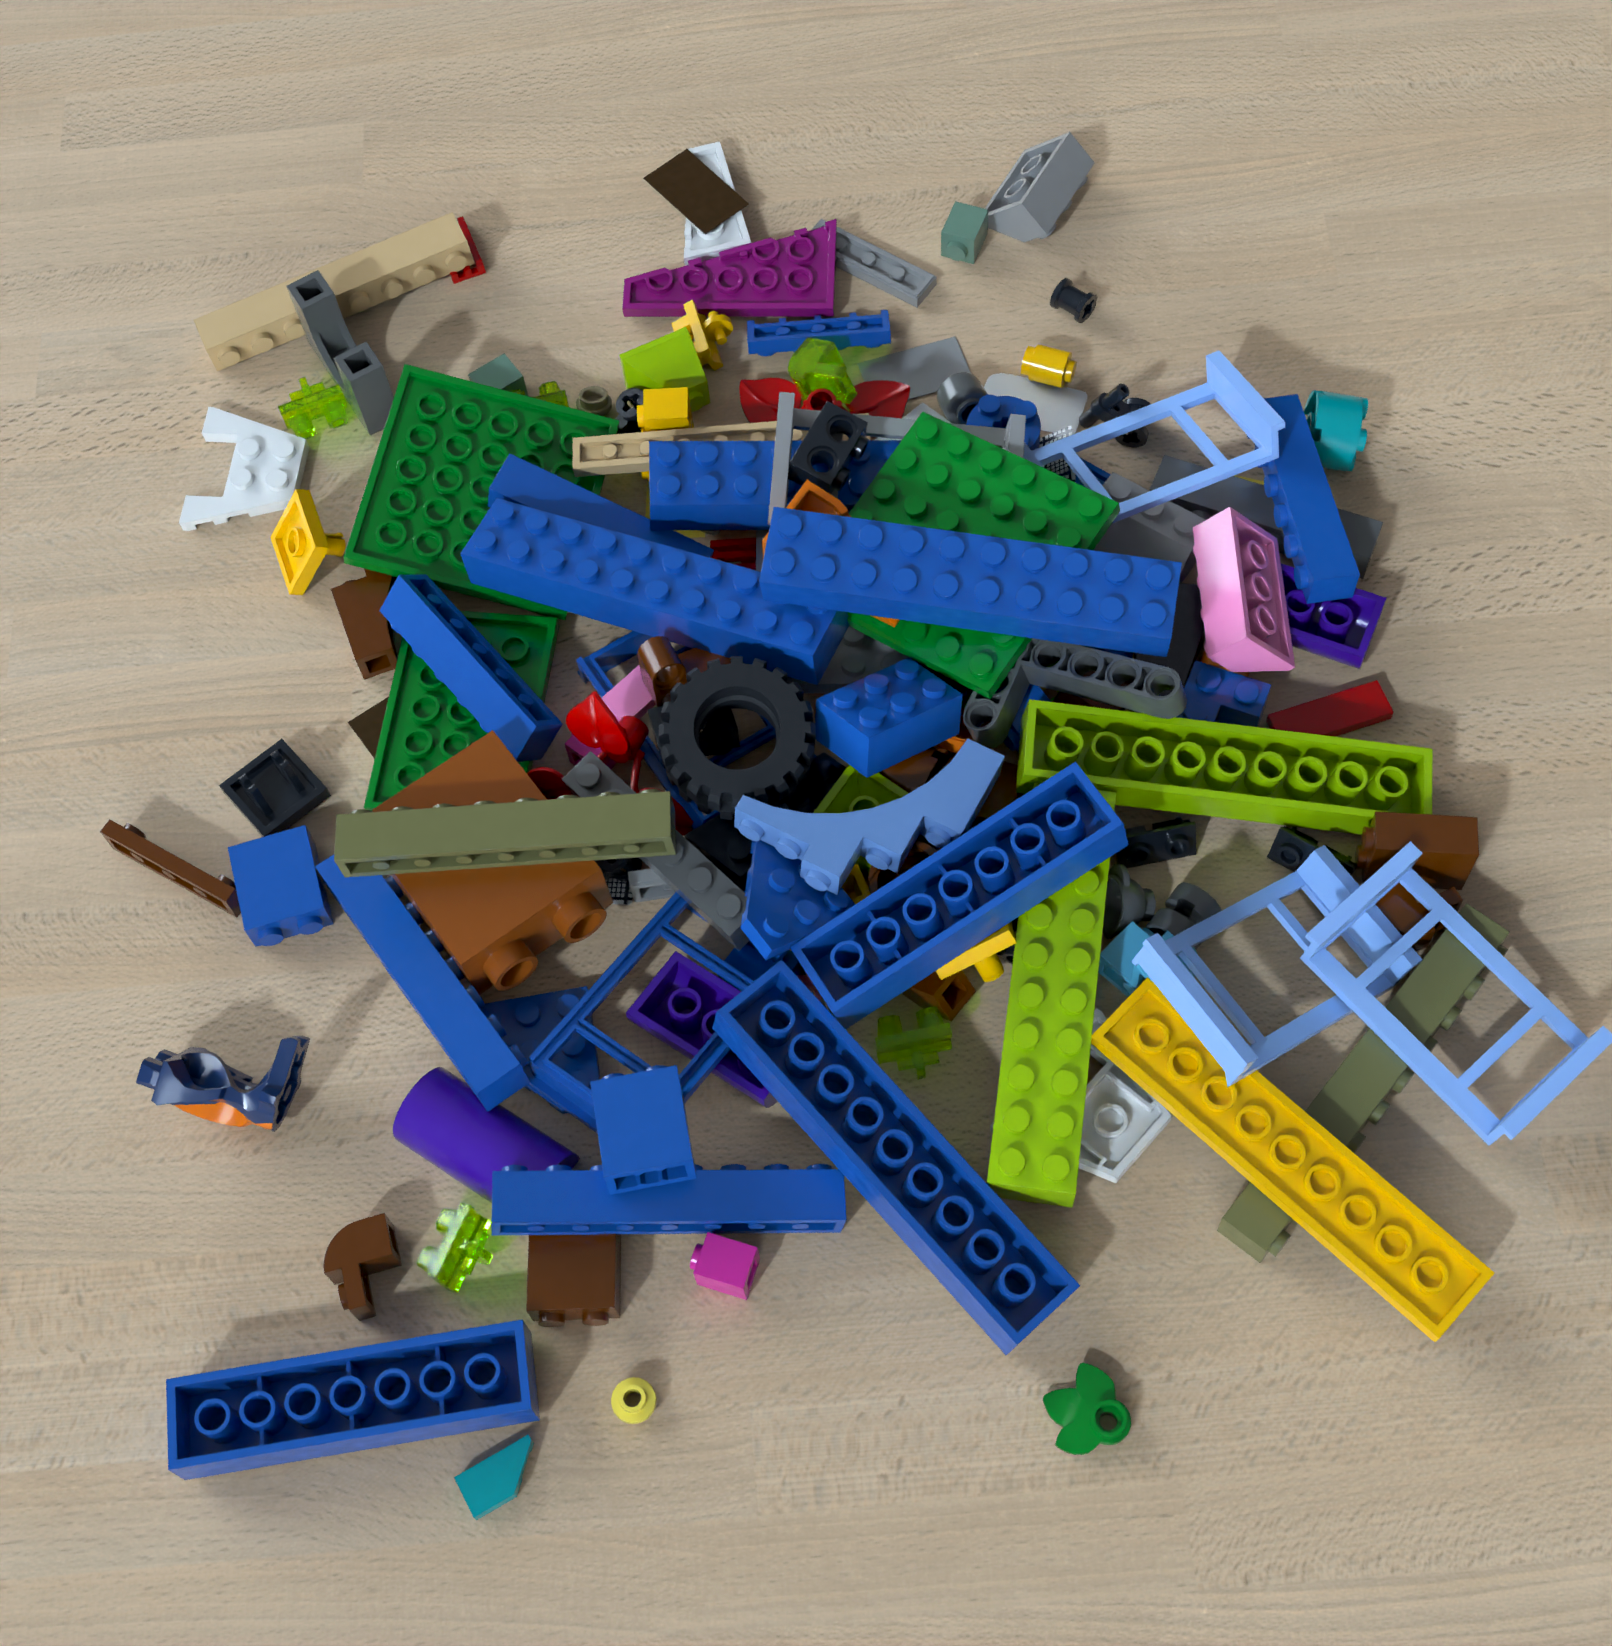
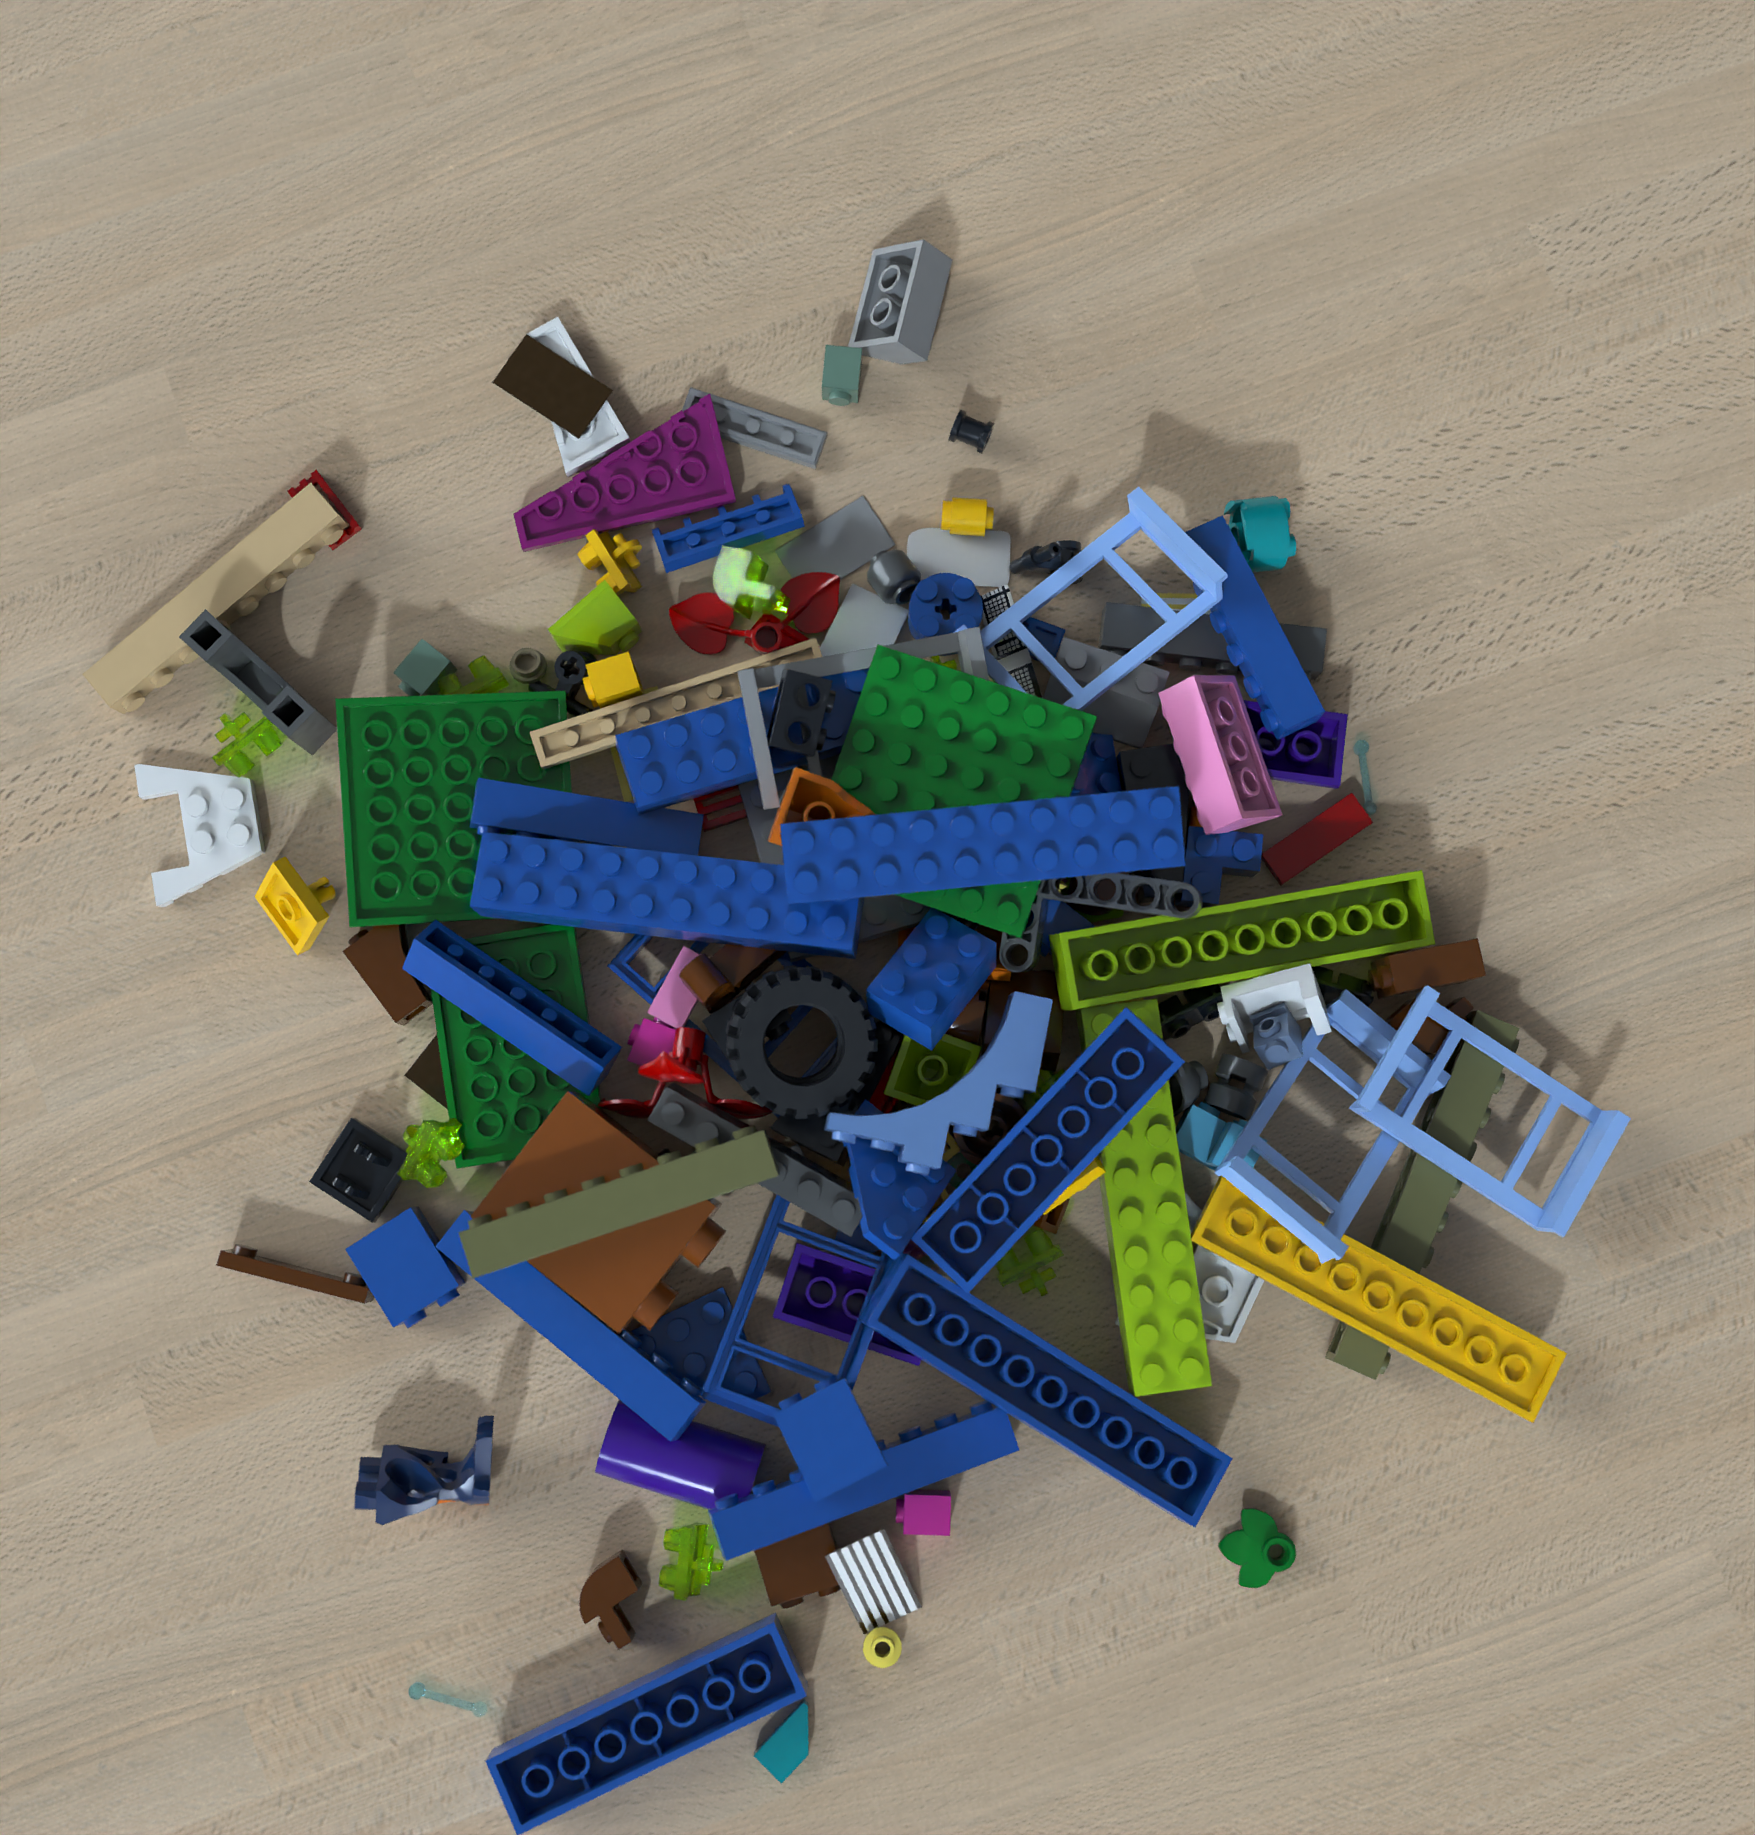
camera: 25 degrees left, 20 degrees up
(129, 1310) = (418, 1690): none -> clear light blue hinge
(344, 780) = (427, 1147): none -> clear neon green hips
(645, 1317) = (873, 1581): none -> sticker
(1238, 875) = (1276, 1036): none -> sand blue brick
(1241, 840) = (1293, 986): none -> white panel
(1396, 647) = (1361, 748): none -> clear light blue hinge

